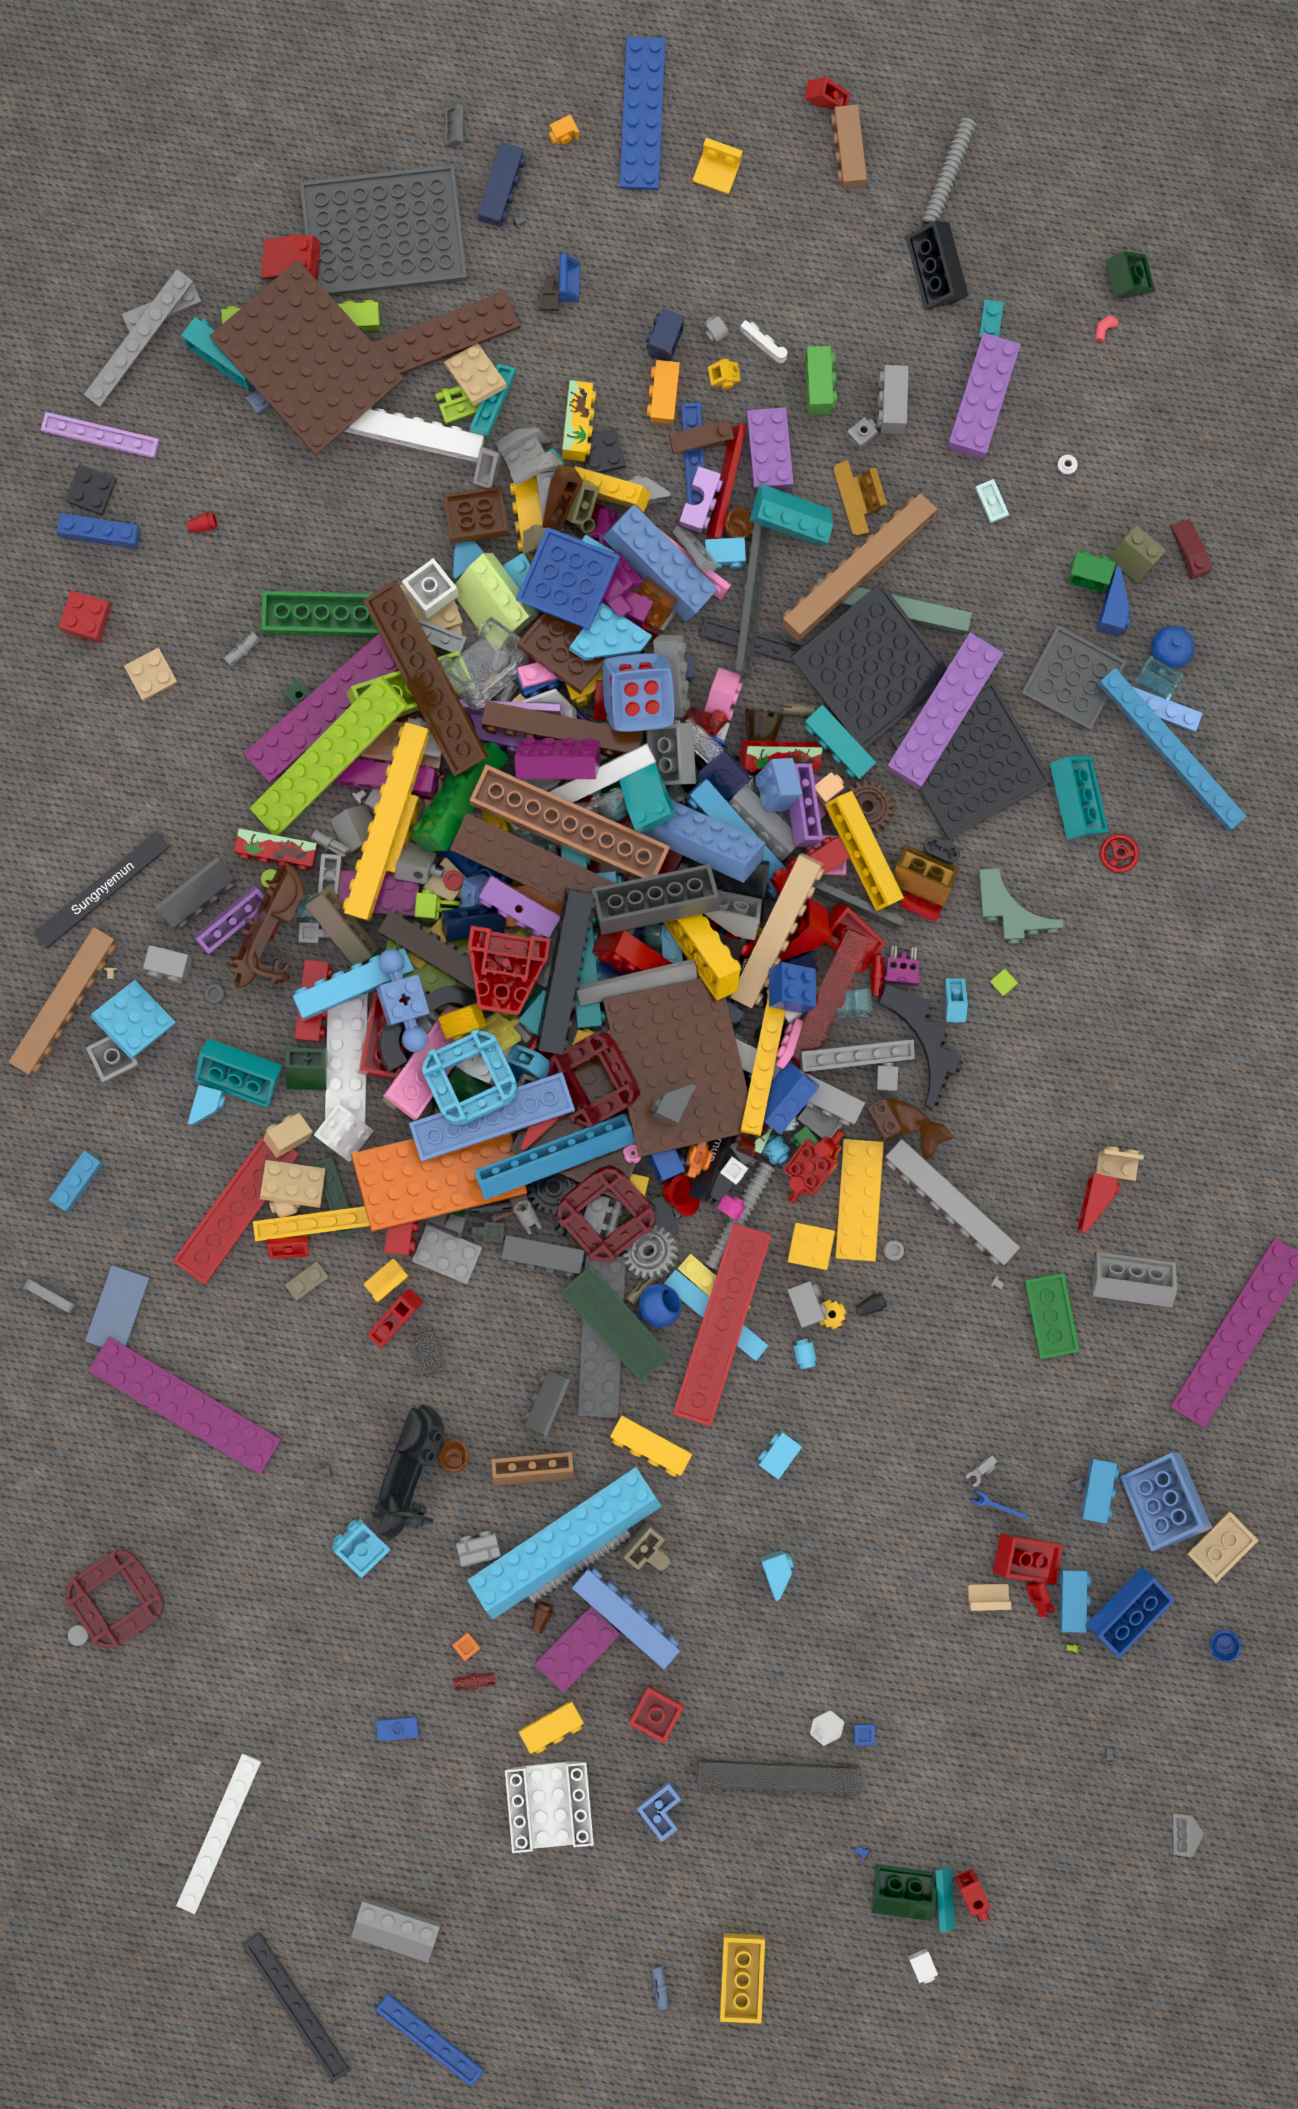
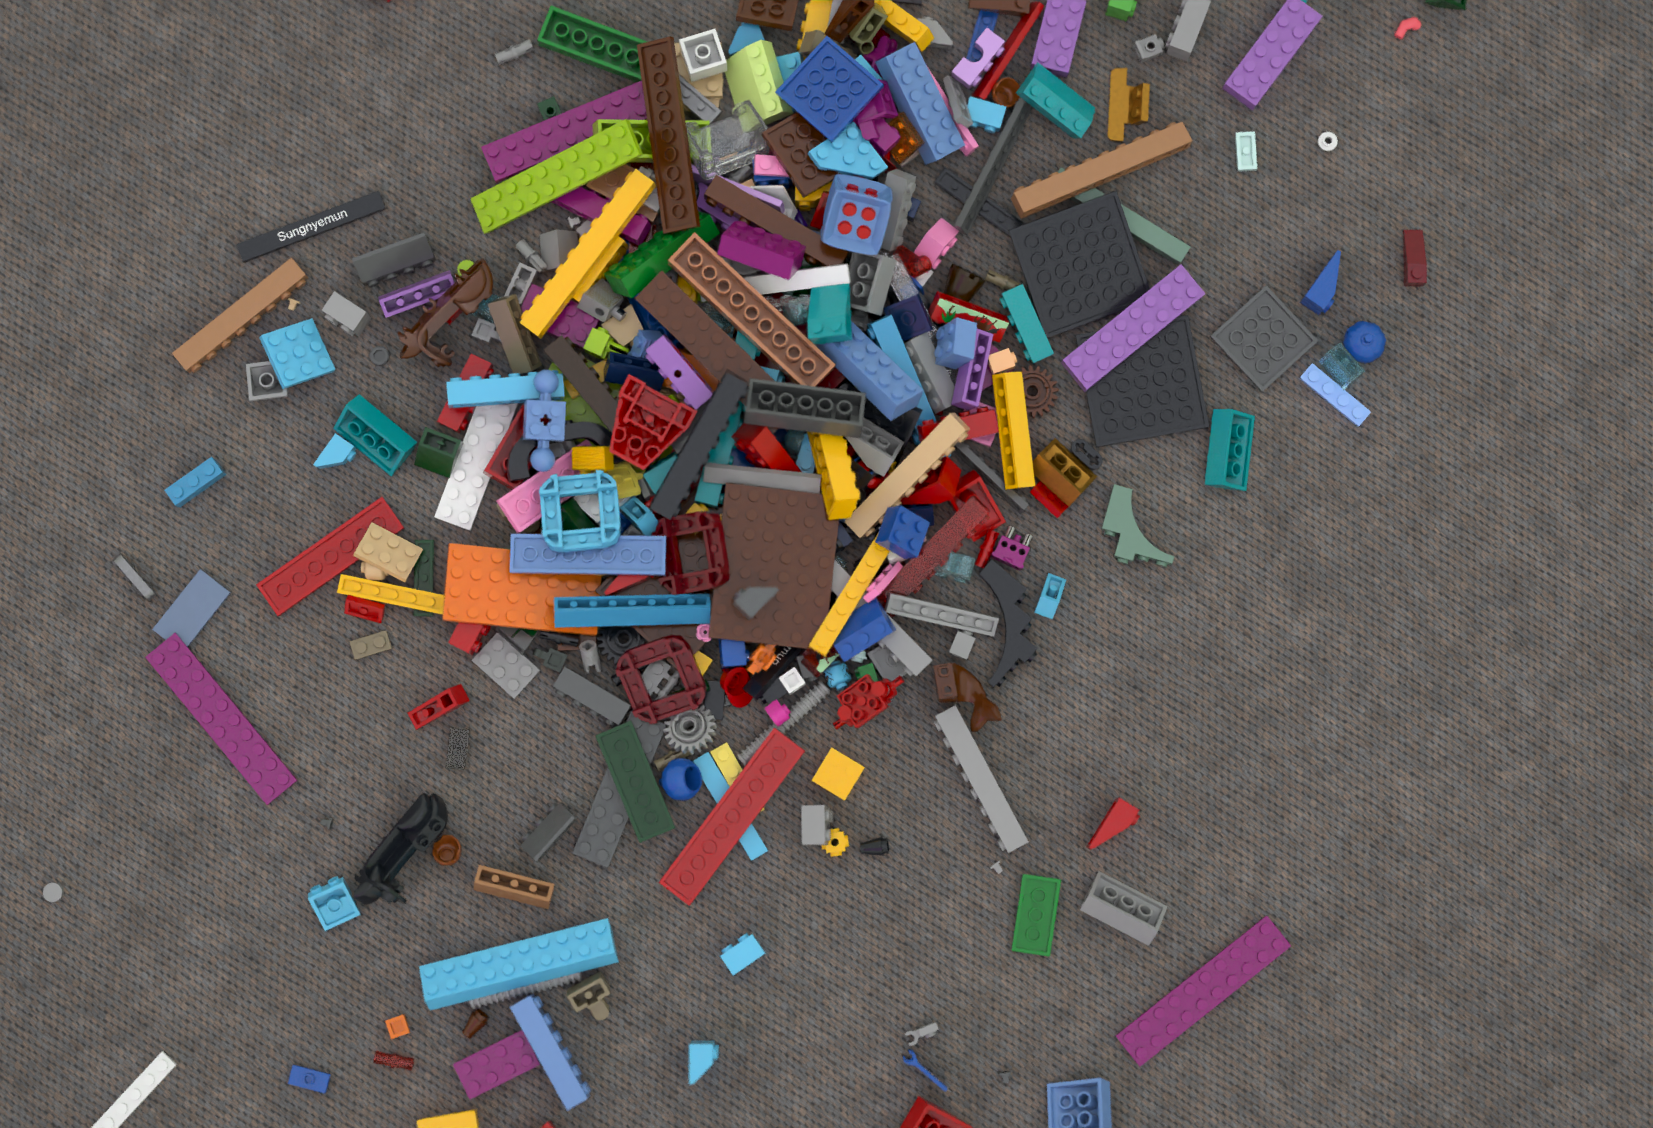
camera: 25 degrees right, 0 degrees up
(89, 1615) = (69, 877): dark red plate -> none
(150, 674) = (424, 46): tan plate -> none
(275, 849) = (481, 244): brick -> none
(287, 1135) = (399, 506): tan brick -> none
(343, 1132) = (451, 522): white bracket -> none
(386, 1280) = (442, 669): yellow panel -> none
(453, 880) = (630, 327): red tile -> none
(478, 1549) = (439, 942): light grey brick -> none
(651, 1446) = (629, 904): yellow brick -> none
(805, 1354) = (798, 870): medium azure brick -> none
(859, 1200) = (897, 747): yellow plate -> none
(893, 1250) = (913, 804): light grey plate -> none
(1003, 982) = (1100, 595): lime tile -> none
(1090, 571) = (1313, 246): green brick -> none
(1099, 1491) = (1023, 1090): dark azure brick -> none
(1118, 1164) = (1146, 798): tan bracket -> none
(1126, 853) = (1262, 518): red piece -> none
(1137, 554) = (1362, 246): olive slope -> none
(1171, 749) = (1329, 435): dark azure brick -> none

